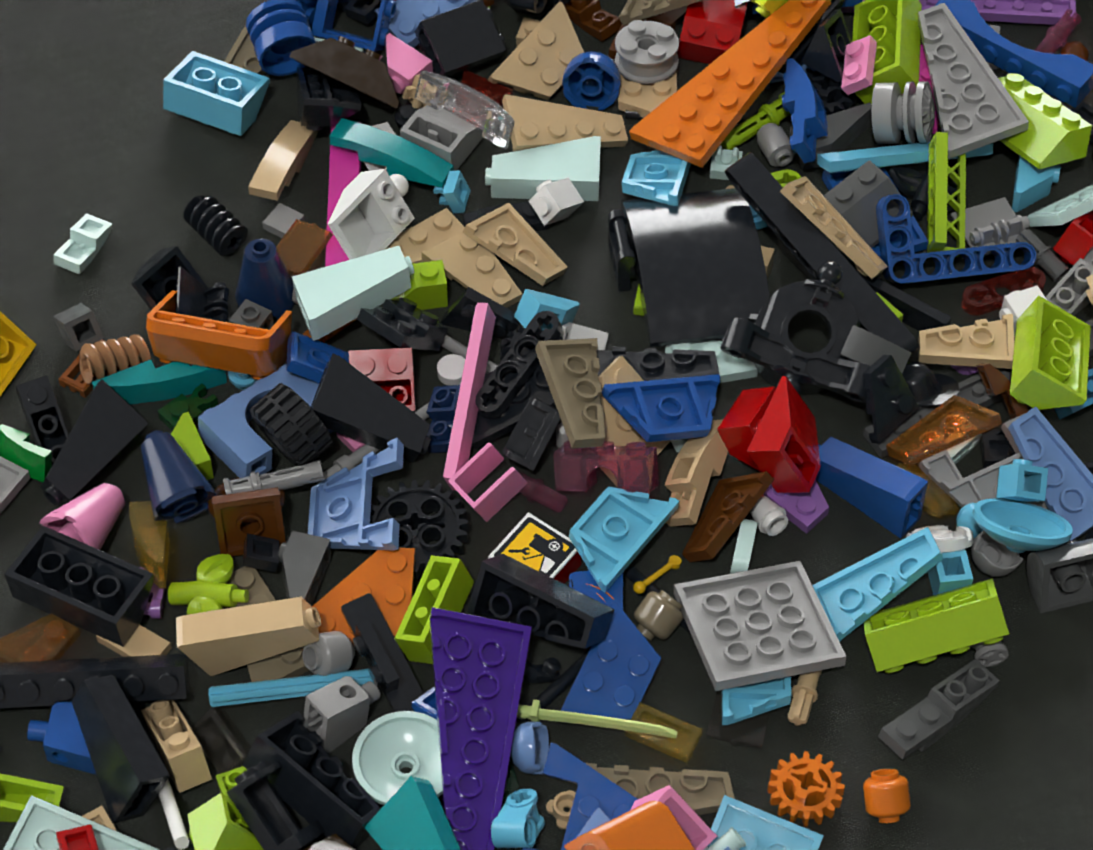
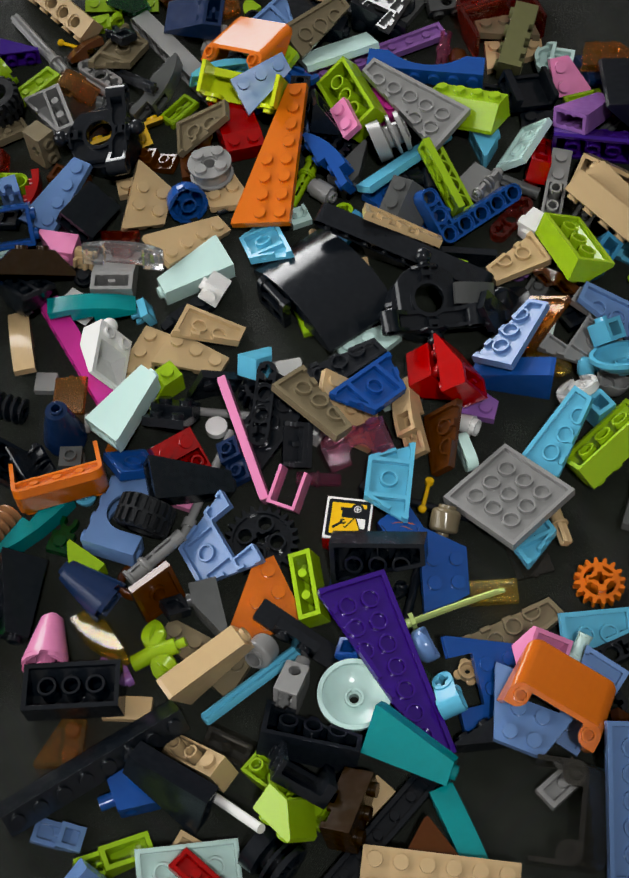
camera: 25 degrees left, 5 degrees up
(892, 431) = (513, 337): none -> medium blue wing

